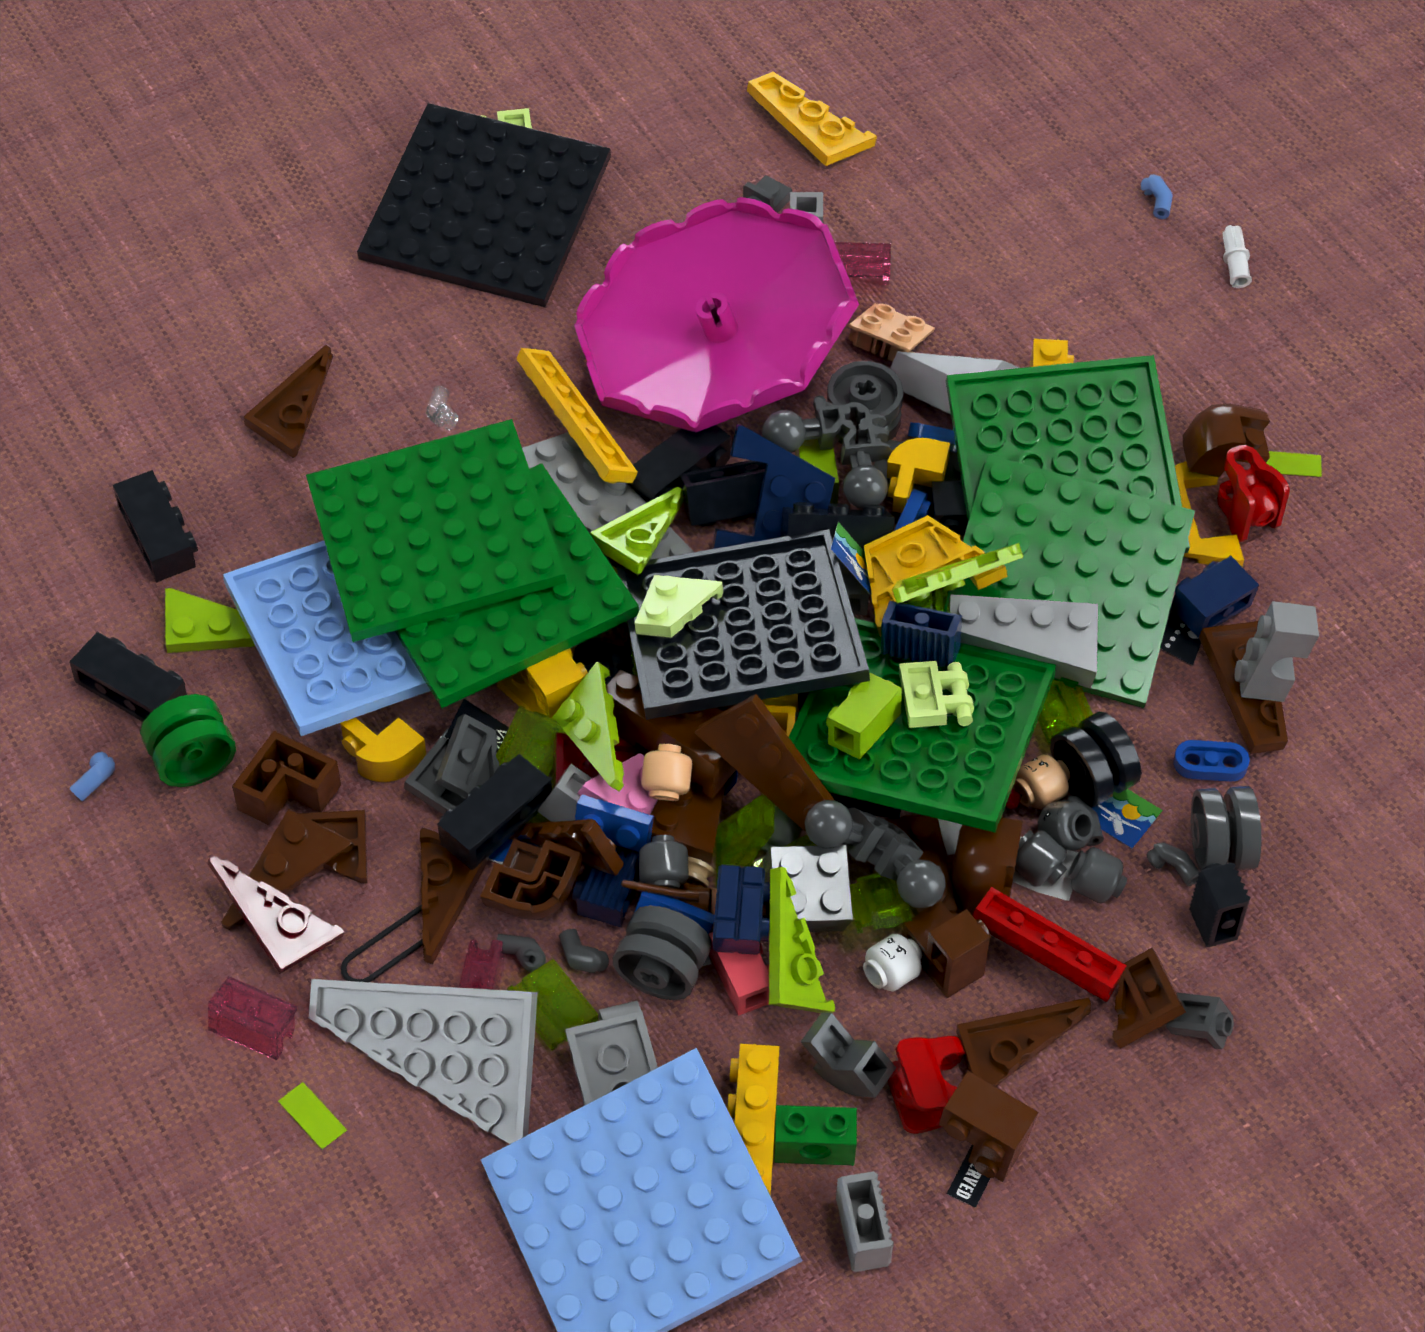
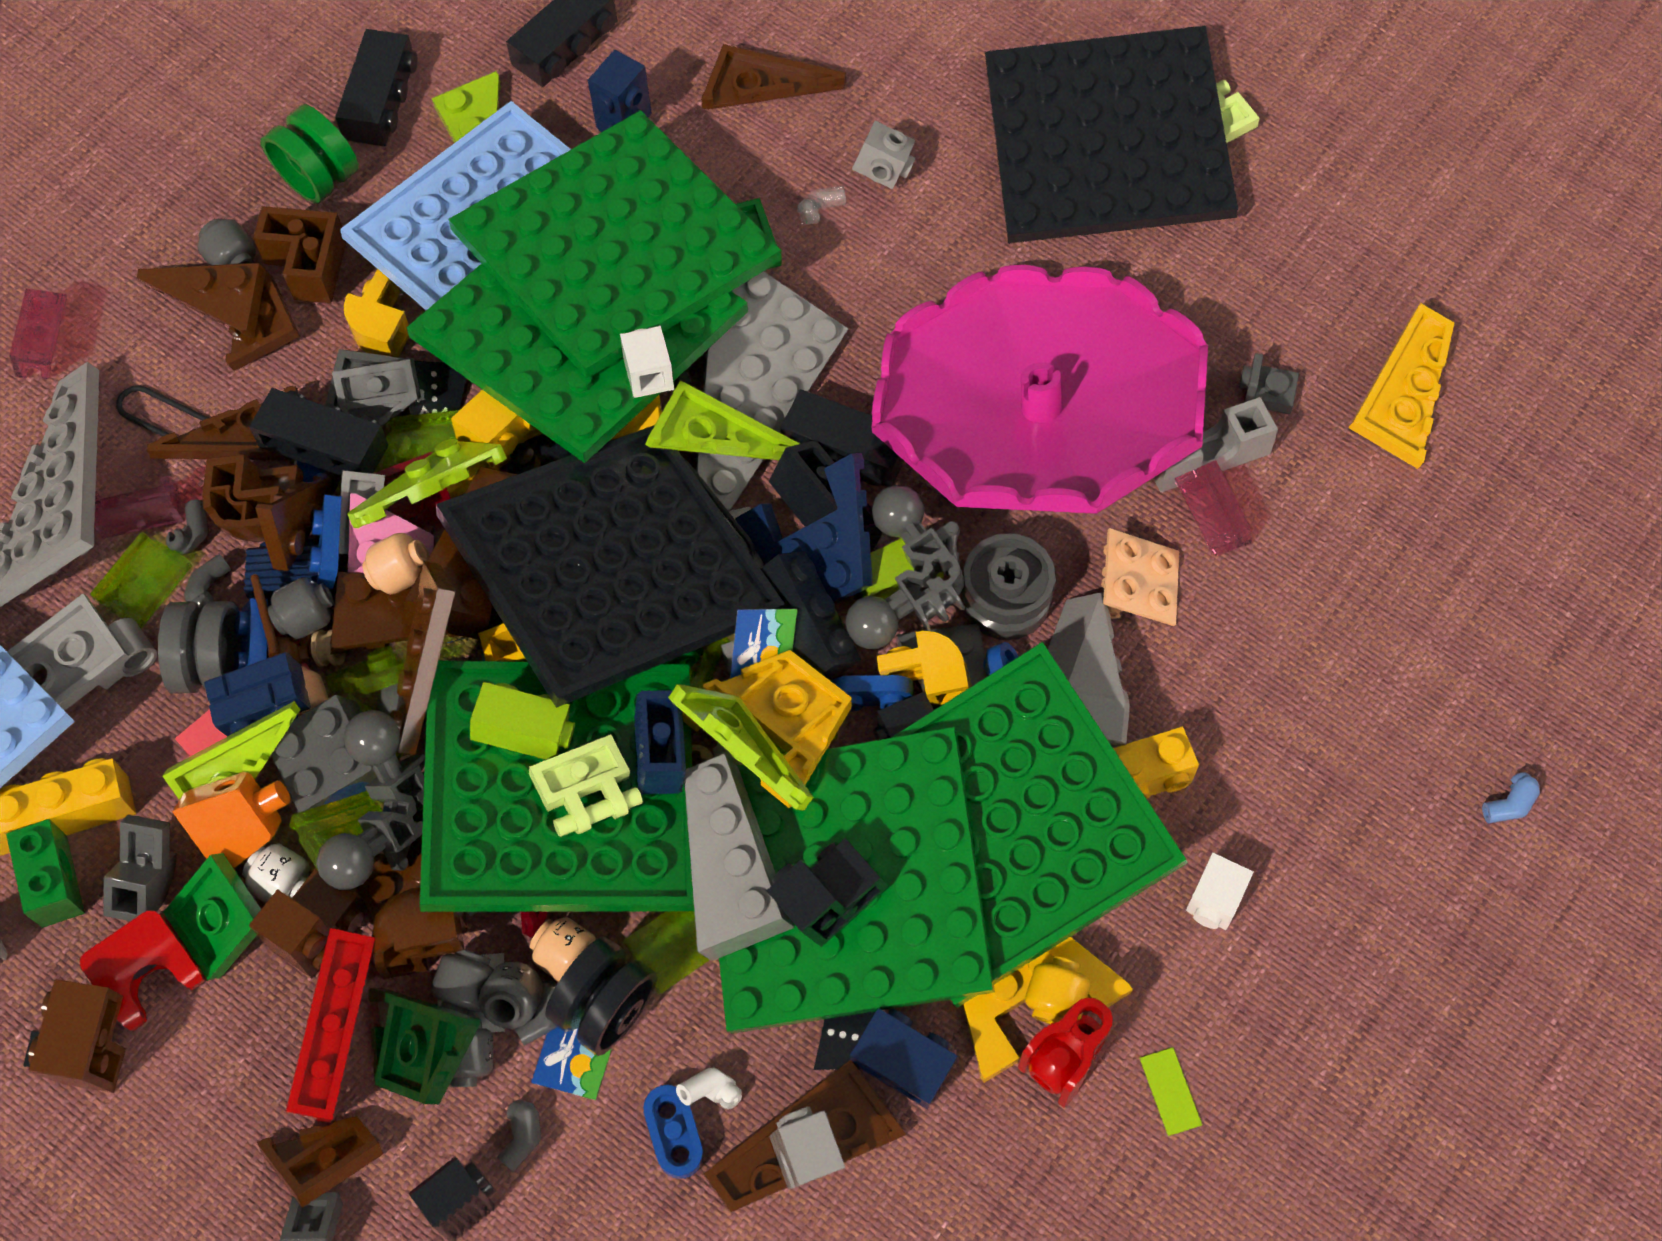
camera: 70 degrees right, 10 degrees up
(101, 769) = (265, 107): medium blue arm -> none
(241, 840) = (225, 243): none -> dark grey head
(264, 497) = (618, 90): none -> dark blue brick
(281, 926) = (146, 312): wing -> none
(427, 345) = (885, 155): none -> light grey brick
(577, 416) = (851, 318): yellow plate -> none
(582, 528) = (647, 361): none -> white brick
(673, 603) = (602, 486): yellowish green wing -> none
(837, 966) = (232, 815): none -> orange torso
(912, 1007) = (214, 916): none -> green plate
(1006, 1042) = (220, 1027): reddish brown wing -> none
(1087, 570) = (828, 894): none -> black brick
(1092, 886) = (417, 1045): none -> dark green wing
(1171, 373) = (1219, 892): none -> white brick
(1188, 724) = (711, 1084): none -> white arm
(1203, 486) = (1055, 989): none -> yellow head
(1219, 430) = (1146, 996): reddish brown brick -> none
(1226, 827) = (557, 1173): dark grey wheel -> none
(1236, 257) = (1461, 922): white axle -> none

